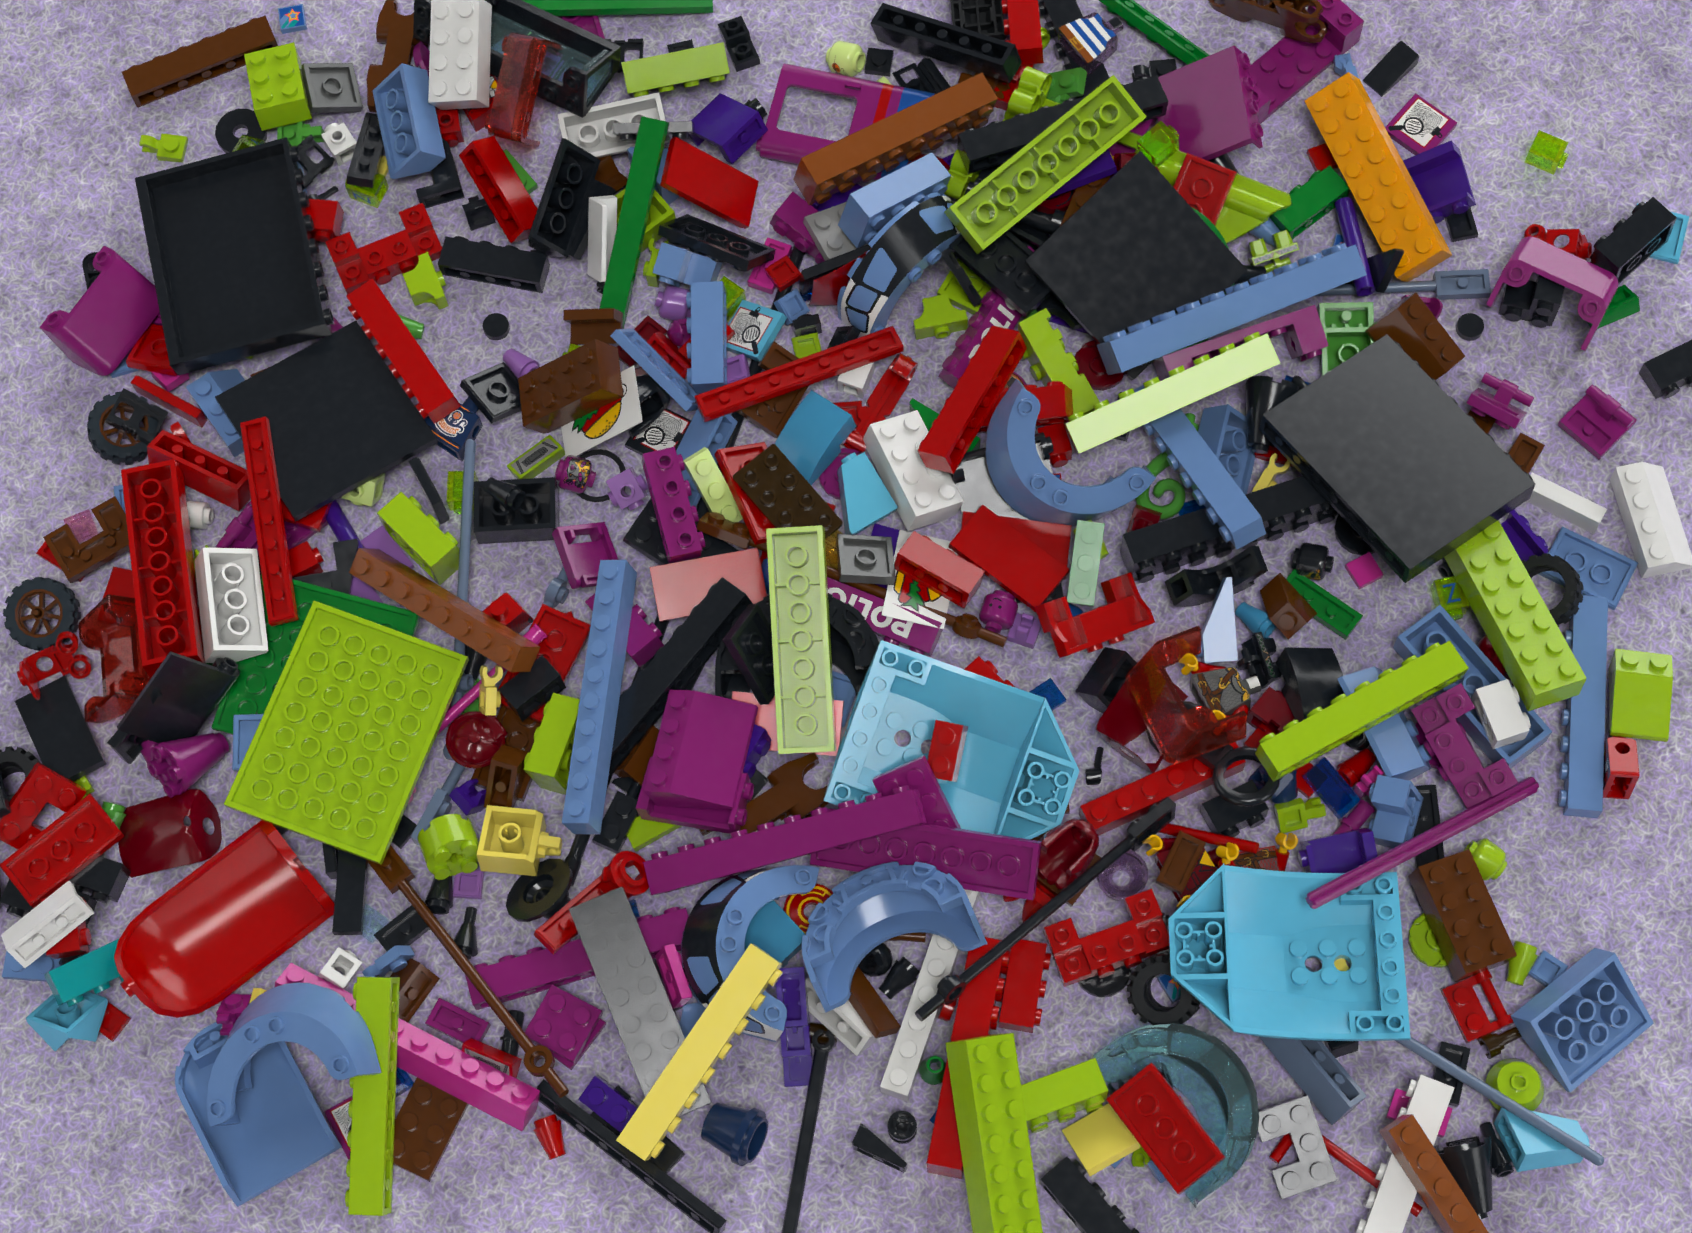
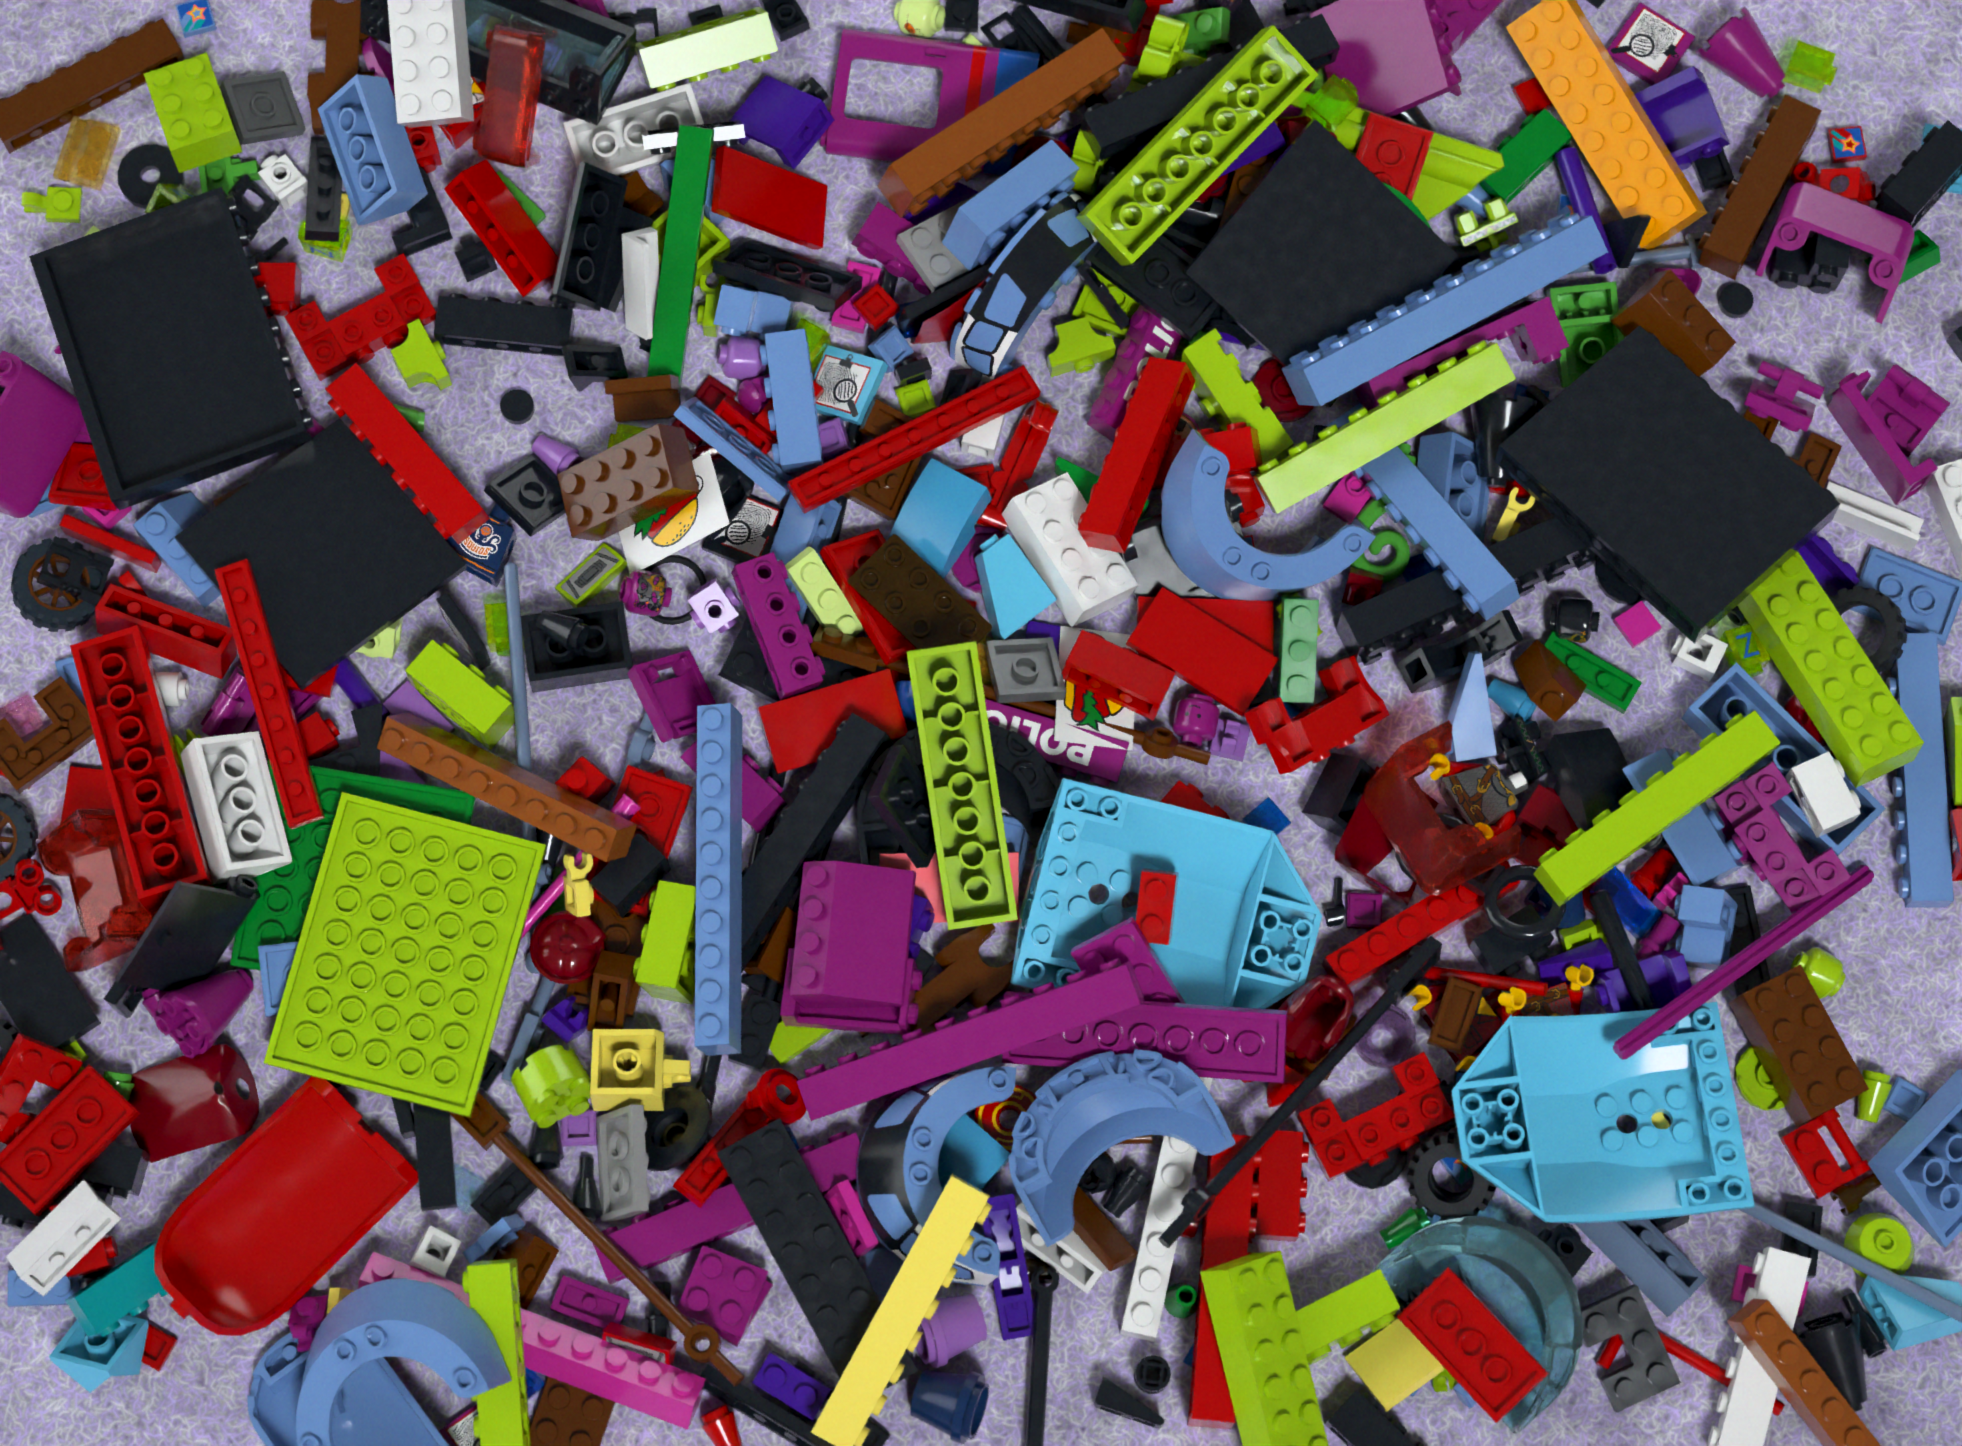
camera: 15 degrees left, 5 degrees up
(195, 111) = (87, 153): none -> clear yellow plate
(497, 913) = (622, 1163): none -> light grey plate
(557, 297) = (593, 364): none -> black slope
(741, 1072) = (952, 1329): none -> medium lavender piece
(1117, 774) = (1364, 910): none -> magenta tile
(1121, 1027) = (1404, 1226): none -> green cone
(1140, 451) = (1348, 498): none -> dark pink plate
(1253, 1058) = (1567, 1246): none -> black brick
(1300, 826) = (1592, 954): none -> dark purple slope
(1323, 823) = (1622, 950): none -> black axle
(1418, 591) = (1709, 649): none -> white brick
(1494, 138) = (1744, 55): none -> magenta cone
(1496, 239) = (1759, 187): none -> reddish brown brick
(1571, 214) = (1846, 144): none -> tile
(1571, 444) = (1875, 442): none -> magenta panel

